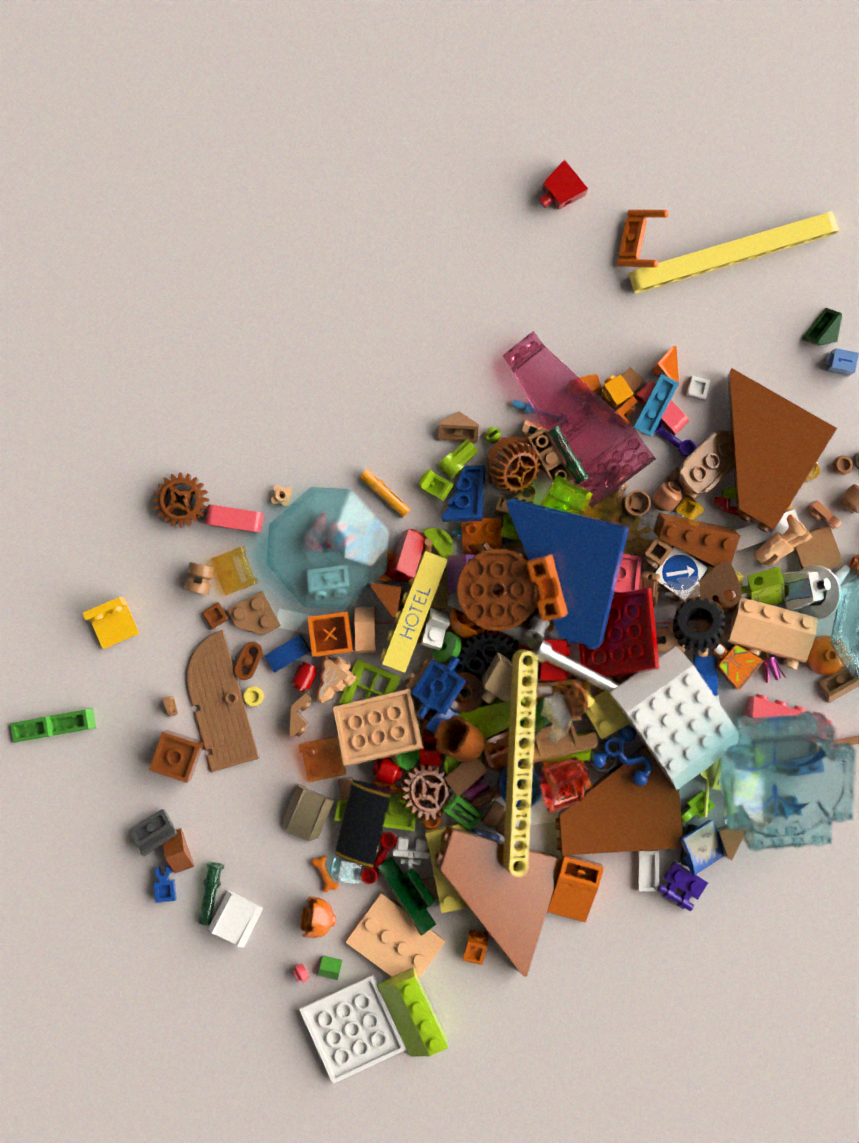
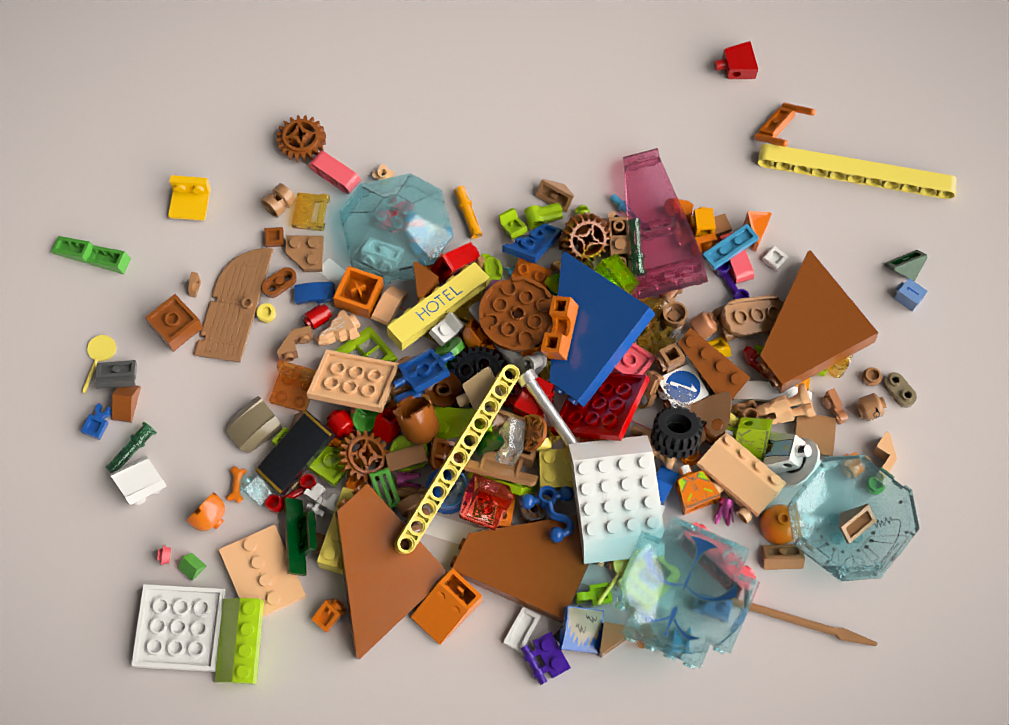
camera: 25 degrees right, 20 degrees down
(122, 812) = (99, 349): none -> light yellow piece
(747, 560) = (746, 409): none -> medium nougat plate

